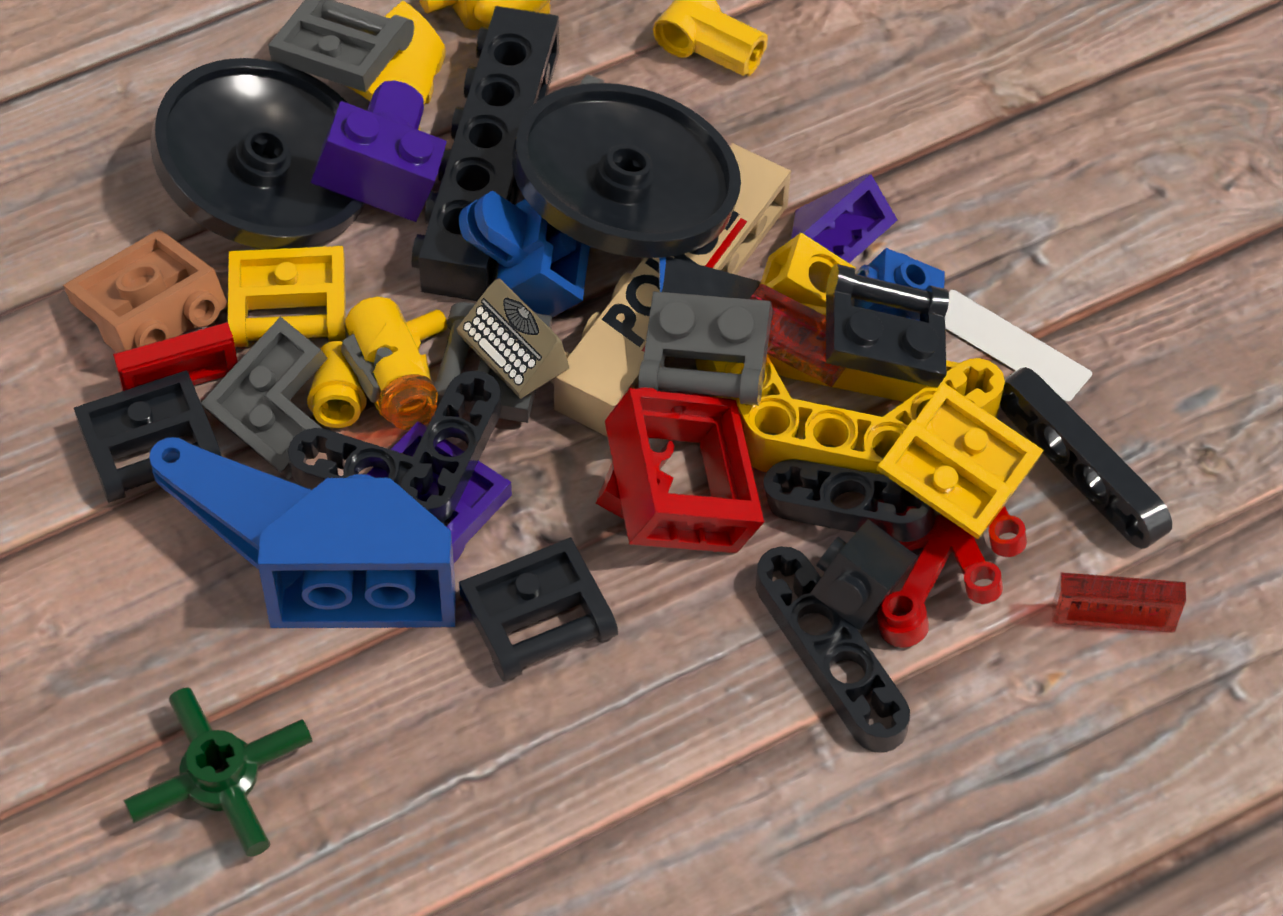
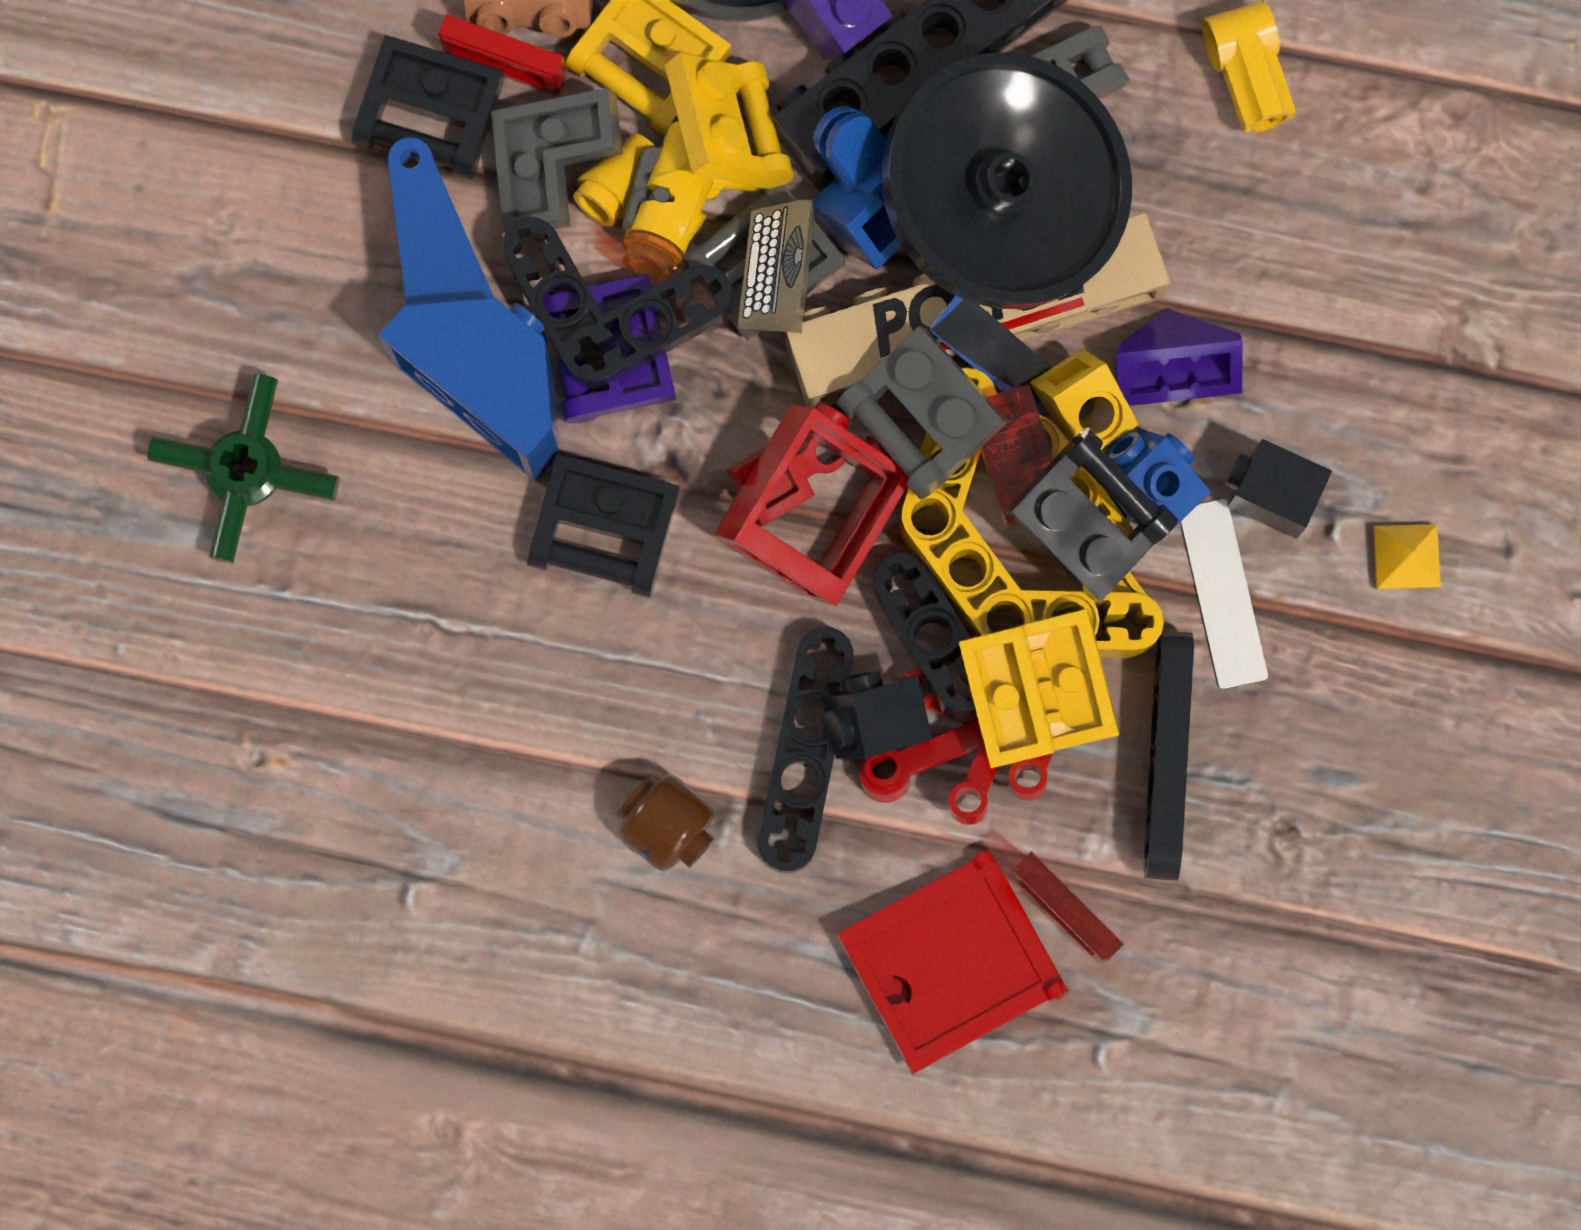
camera: 40 degrees right, 25 degrees up
(389, 281) = (713, 125): none -> yellow plate
(781, 765) = (666, 822): none -> reddish brown head
(984, 243) = (1277, 487): none -> black brick
(1077, 696) = (962, 954): none -> red container
(1102, 237) = (1406, 557): none -> yellow slope

